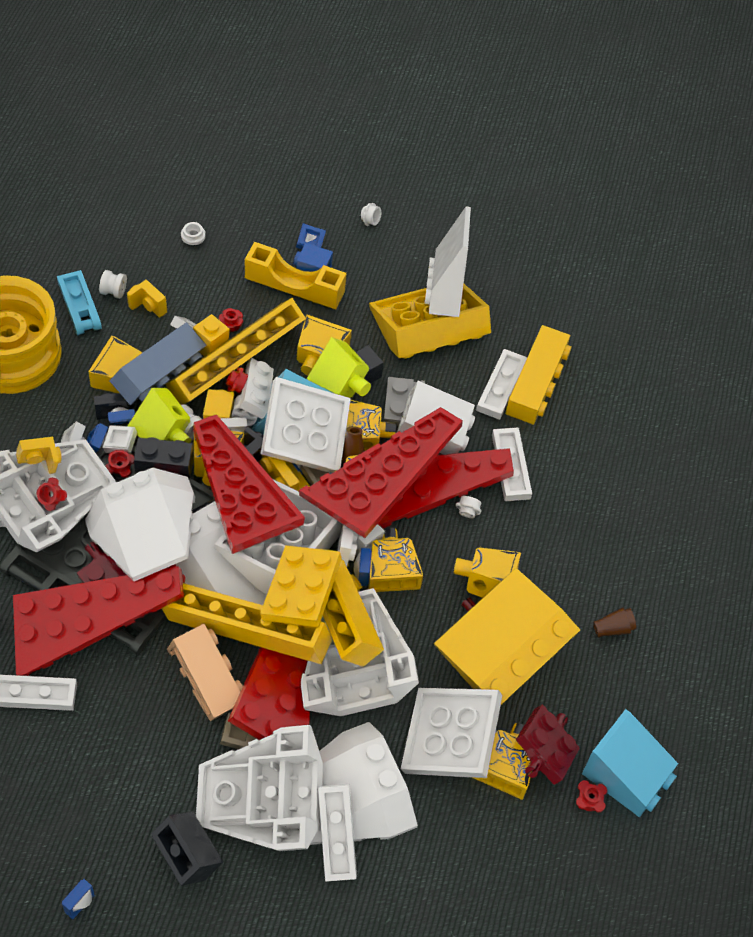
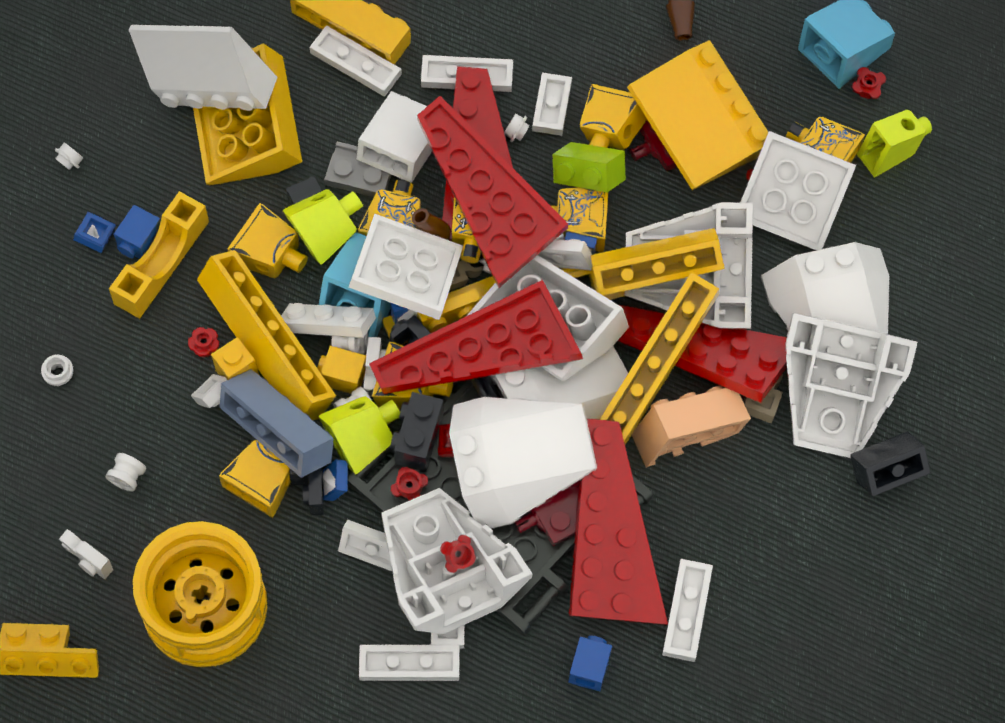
camera: 75 degrees left, 10 degrees up
(38, 450) = (411, 551): yellow bracket -> none
(41, 271) = (90, 559): none -> white plate
(78, 898) = (929, 577): blue tile -> none
(79, 302) = (143, 516): medium azure plate -> none
(97, 437) = (365, 511): blue tile -> none
(120, 439) = (375, 481): white tile -> none
(149, 296) = (157, 428): yellow bracket -> none
(236, 380) = (314, 339): red plate -> none
(301, 586) = (639, 290): yellow plate -> none
(337, 832) = (890, 317): white plate -> none
(436, 557) = (589, 167): none -> lime brick
(498, 530) = (552, 104): none -> white plate
(531, 821) = (892, 141): none -> neon yellow torso
(547, 744) = (820, 105): dark red plate -> none

